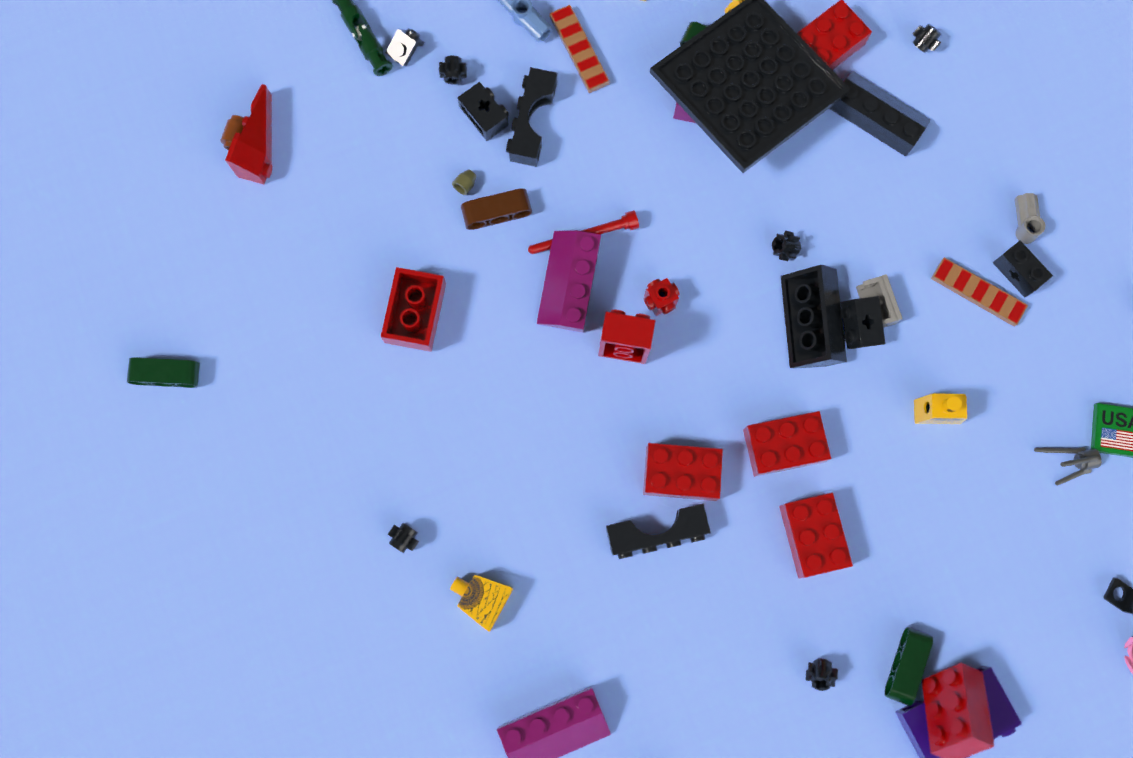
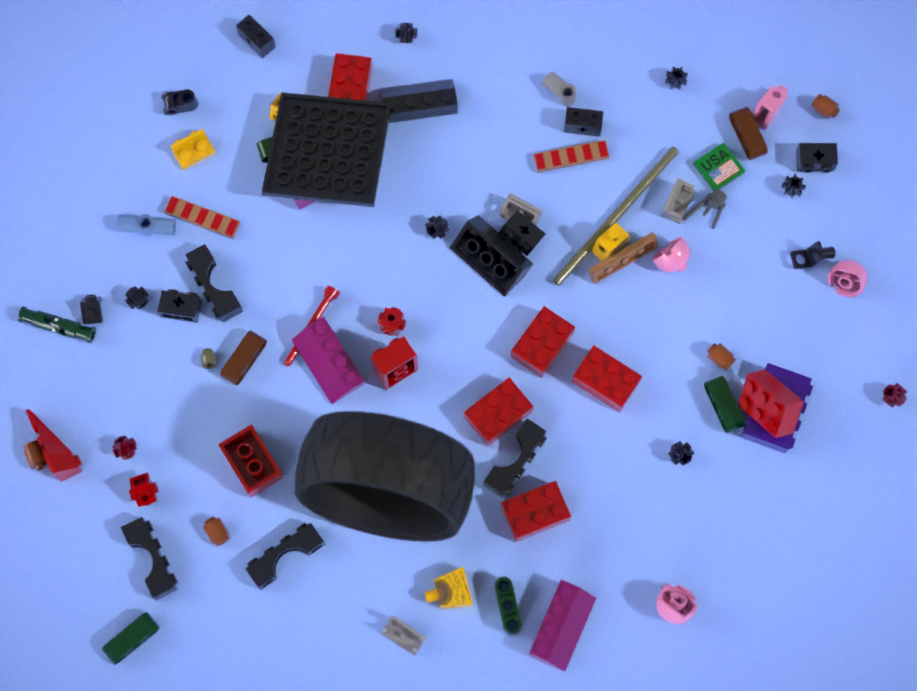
camera: 40 degrees left, 5 degrees down
(238, 343) = (160, 580): none -> black arch
(296, 248) = (143, 490): none -> red brick
(316, 195) = (124, 447): none -> dark red gear
(325, 345) = (216, 531): none -> dark orange brick
(334, 420) = (264, 569): none -> black arch
(401, 598) = (403, 635): none -> light grey hinge
(403, 537) = (371, 599): black gear -> none
(510, 438) = (385, 476): none -> black tyre
(511, 672) = (507, 616): none -> dark green beam
(630, 599) = (535, 511): none -> red brick
(940, 434) = (623, 258): none -> medium nougat tile
(949, 616) = (721, 356): none -> dark orange brick
(972, 386) = (616, 215): none -> olive piece
(991, 477) = (673, 256): none -> bright pink cylinder
(1046, 427) = (678, 201): none -> light grey hinge

